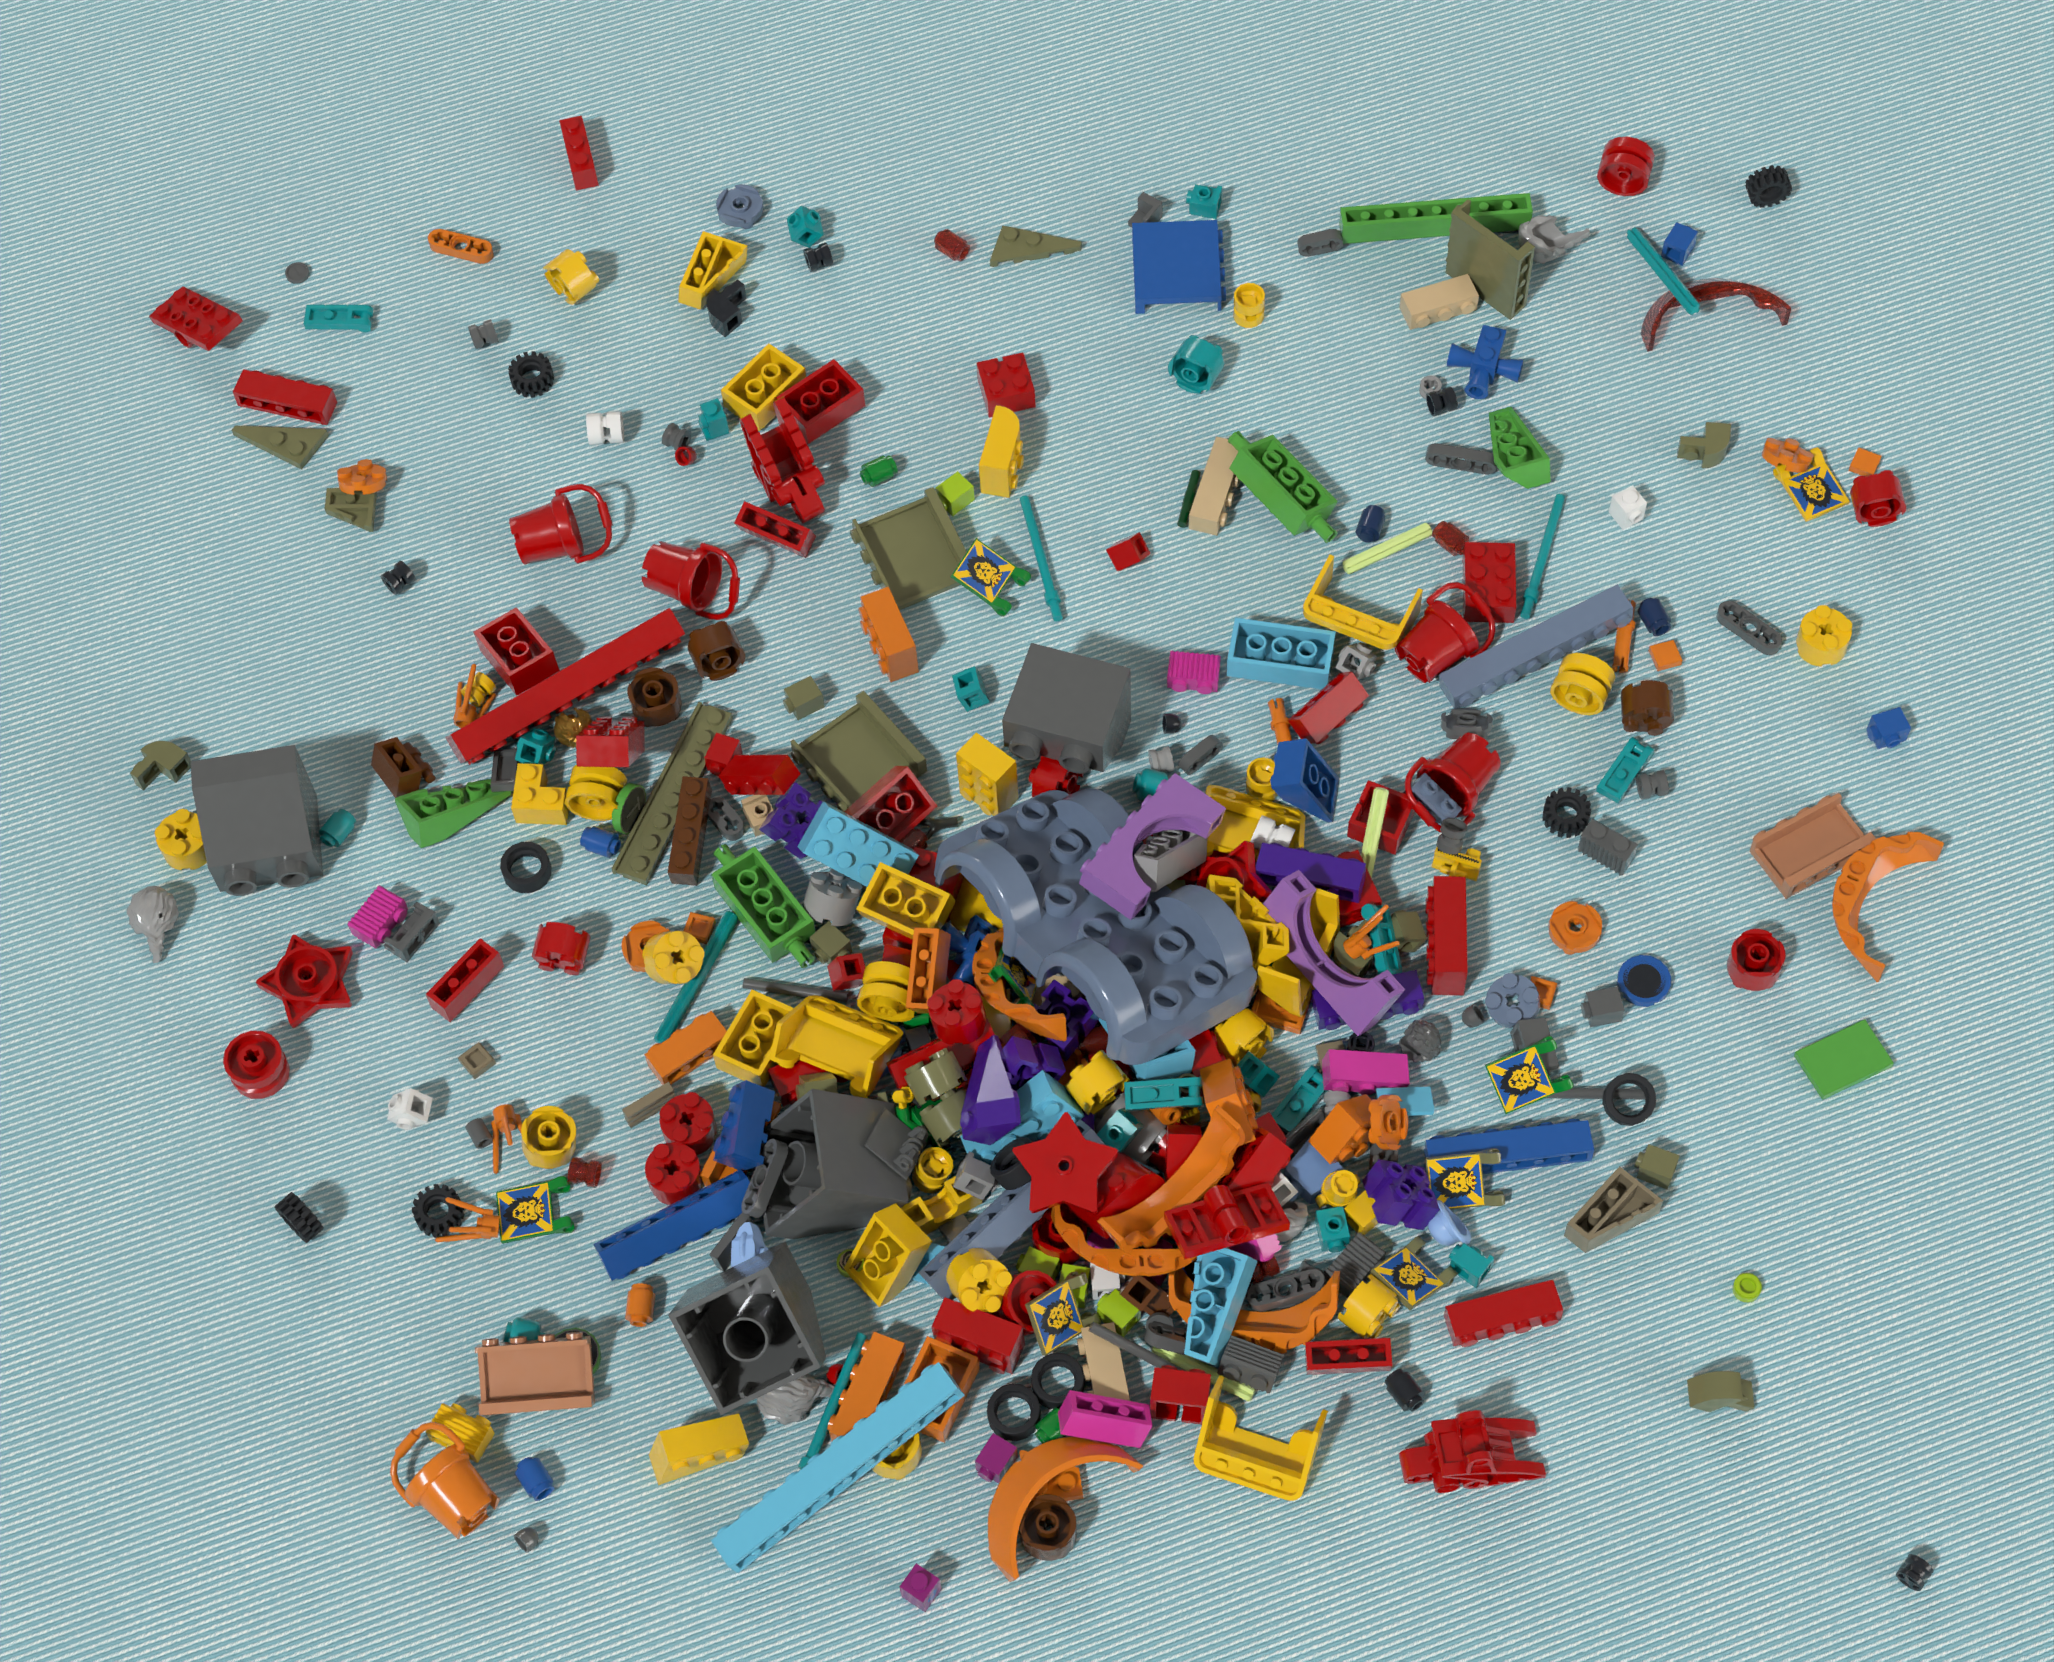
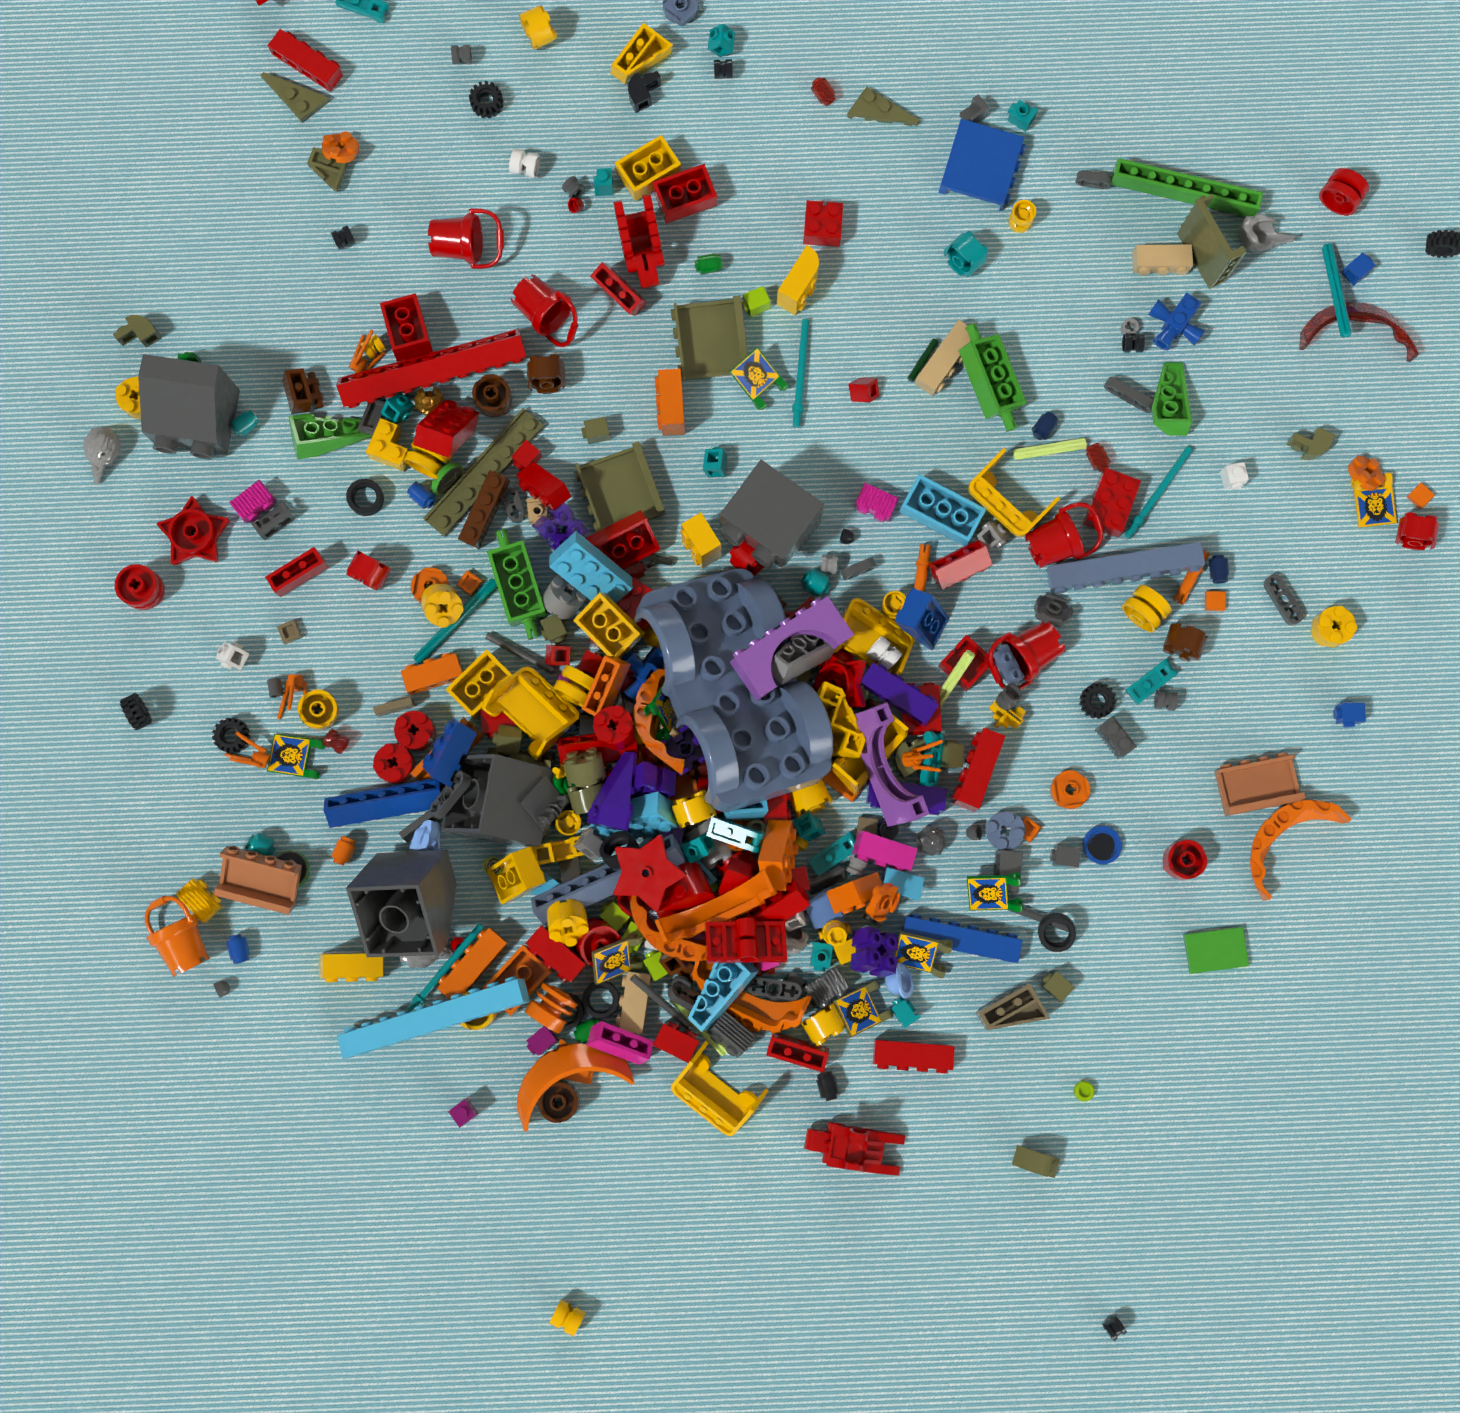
camera: 15 degrees right, 20 degrees up
(995, 1398) = (551, 1007): none -> orange wheel

